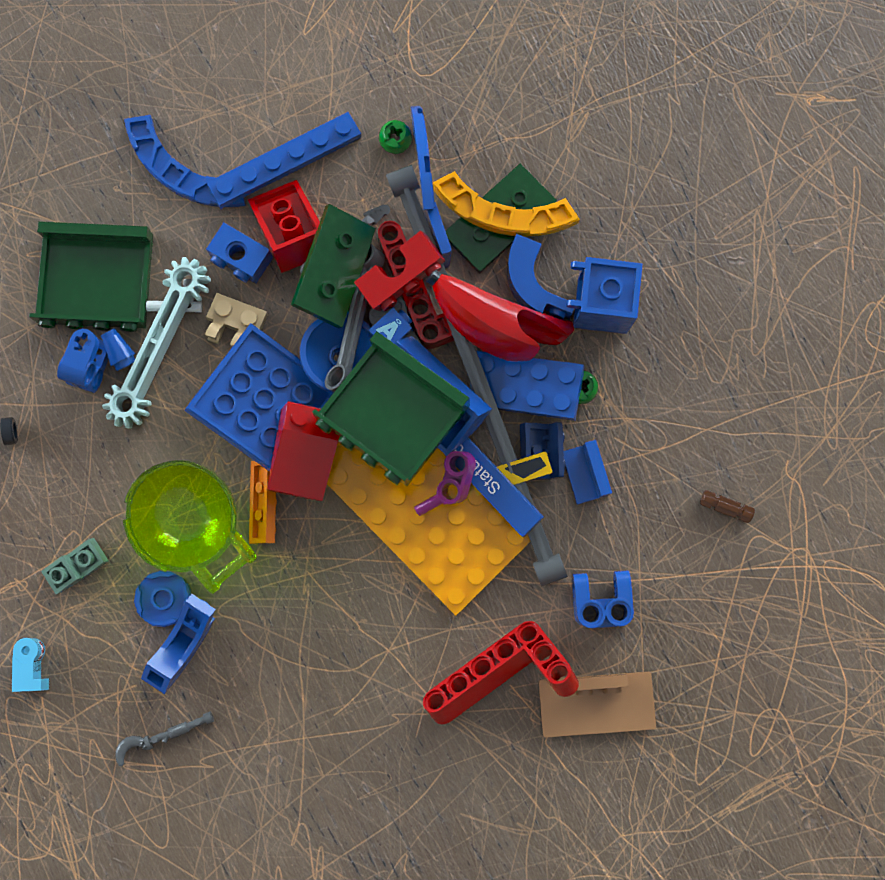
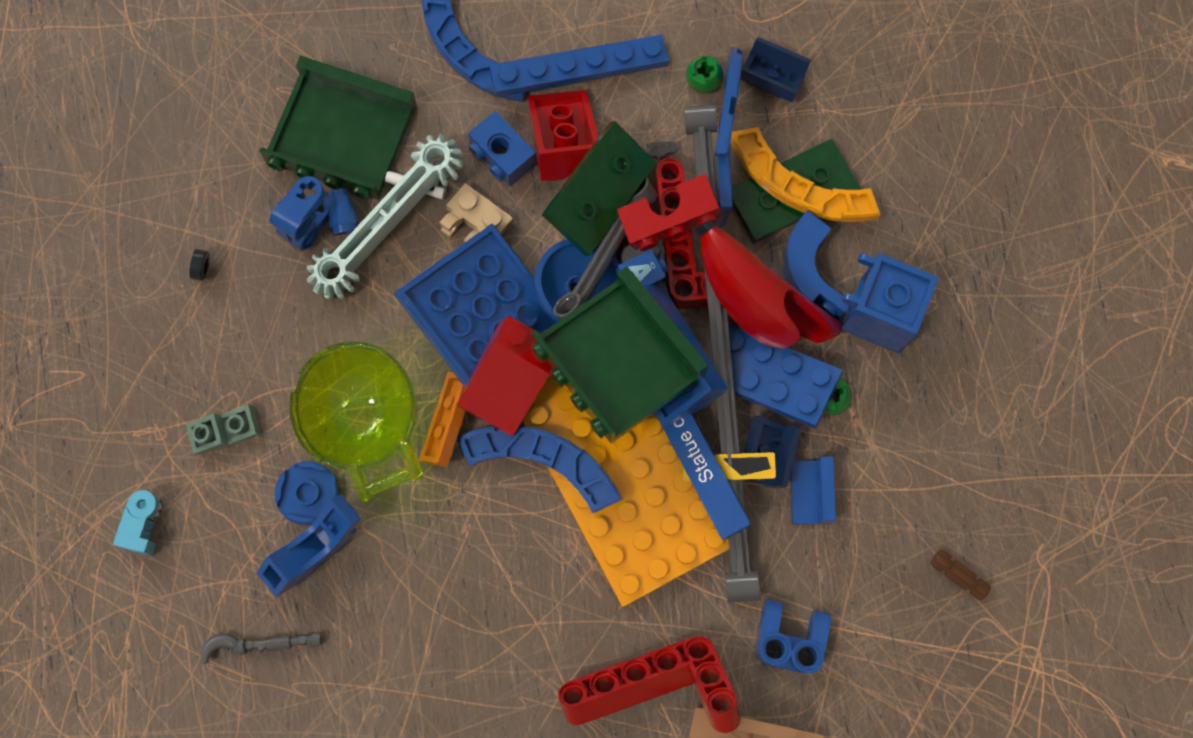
camera: 15 degrees right, 5 degrees down
(359, 504) = (548, 450): none -> blue tile
(454, 115) = (774, 69): none -> dark blue bracket
(461, 480) = (662, 450): magenta beam -> none

